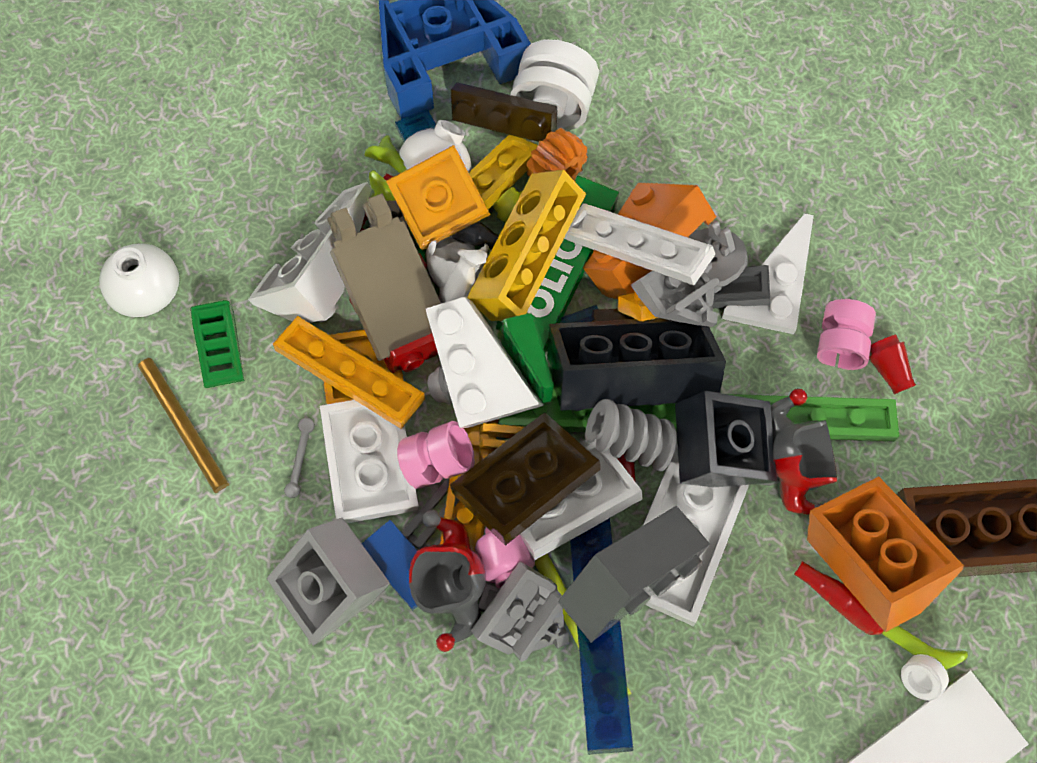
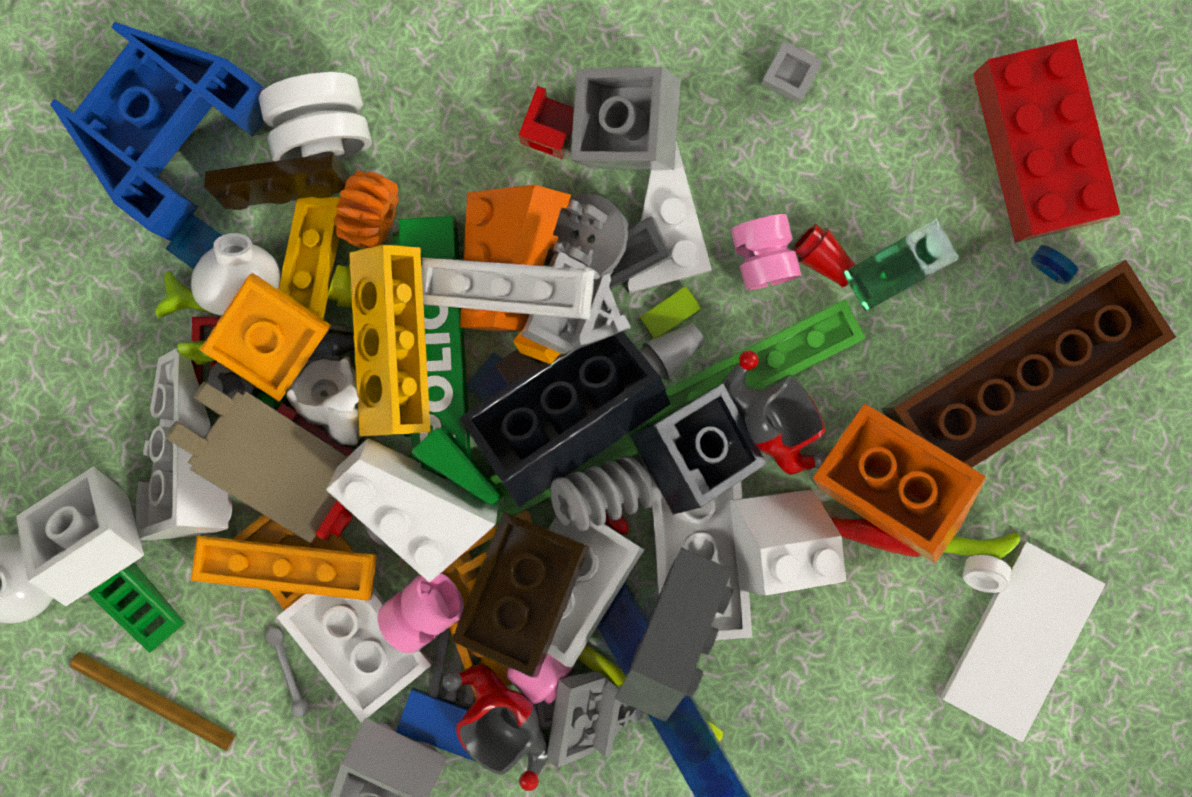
camera: 25 degrees left, 20 degrees up
(213, 267) = (78, 537): none -> white brick
(717, 175) = (547, 124): none -> red panel
(742, 371) = (672, 350): none -> light grey cone
(748, 346) = (670, 312): none -> lime piece
(760, 560) = (785, 543): none -> white slope
(782, 190) = (625, 118): none -> light grey brick
(921, 226) = (791, 72): none -> light grey plate
(953, 393) = (901, 265): none -> clear green slope

